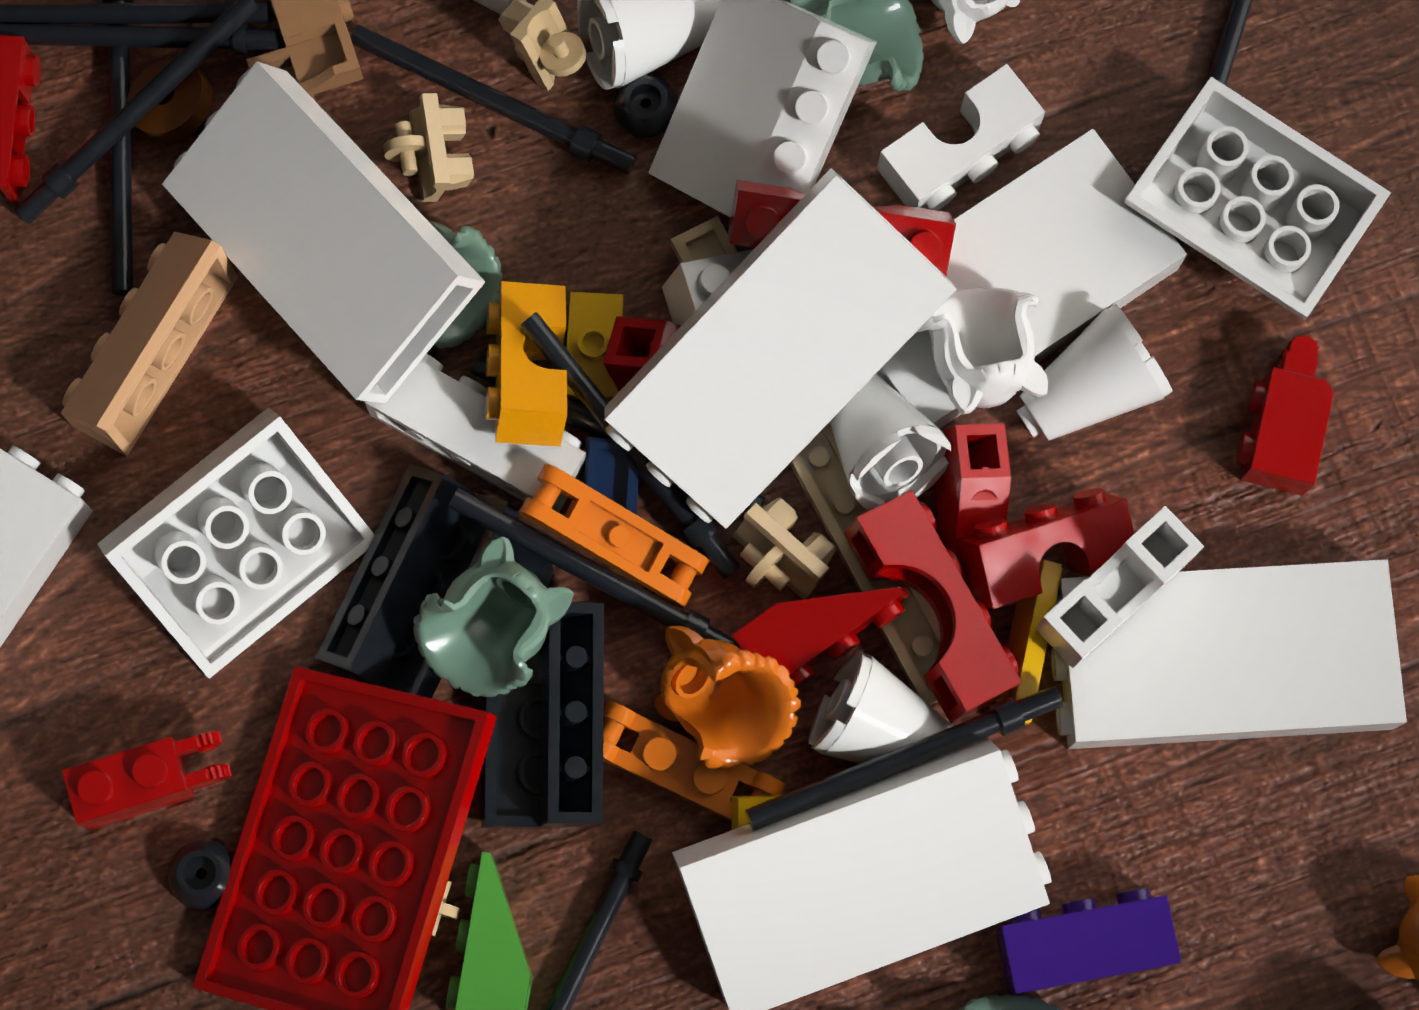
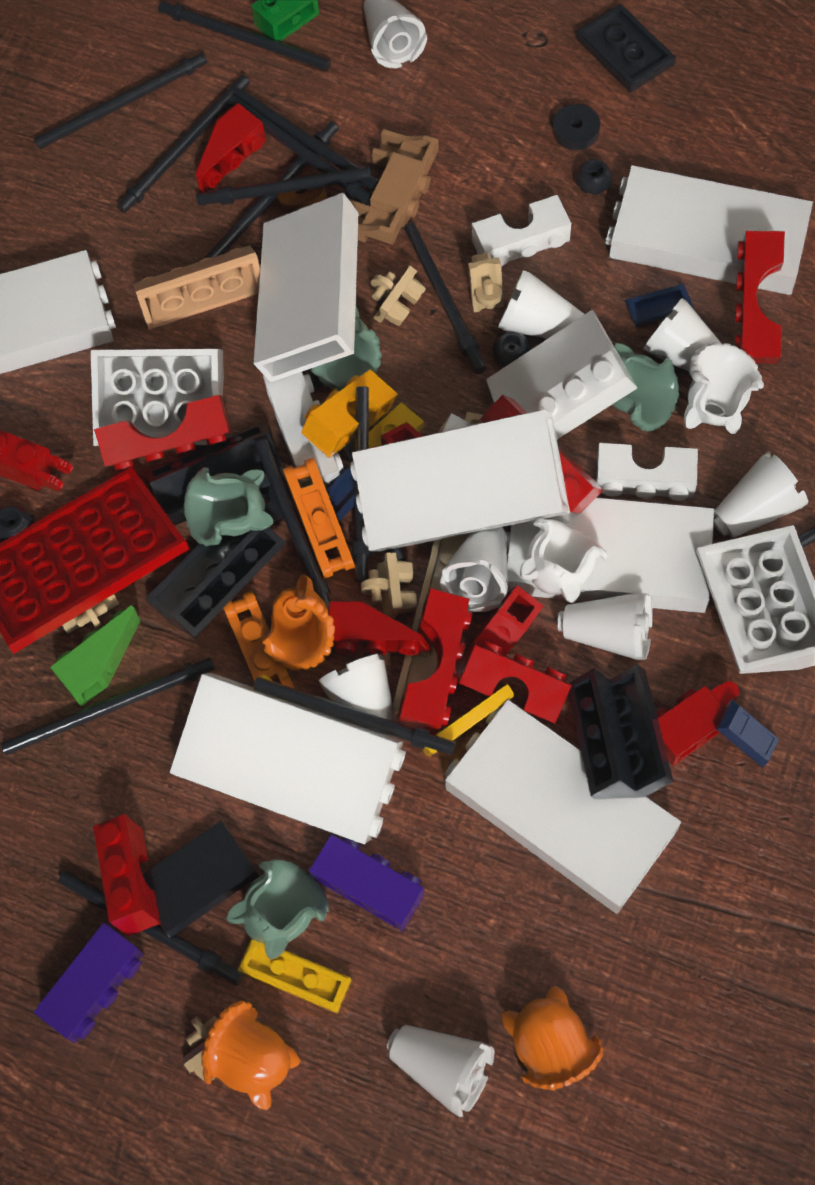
camera: 50 degrees right, 10 degrees down
(263, 642) = (124, 442): none -> red arch
(1119, 587) = (551, 719): white arch -> none
(1131, 69) = (759, 498): none -> white cone
(1256, 523) = (619, 734): none -> black slope
(1365, 385) = (747, 733): none -> dark blue tile

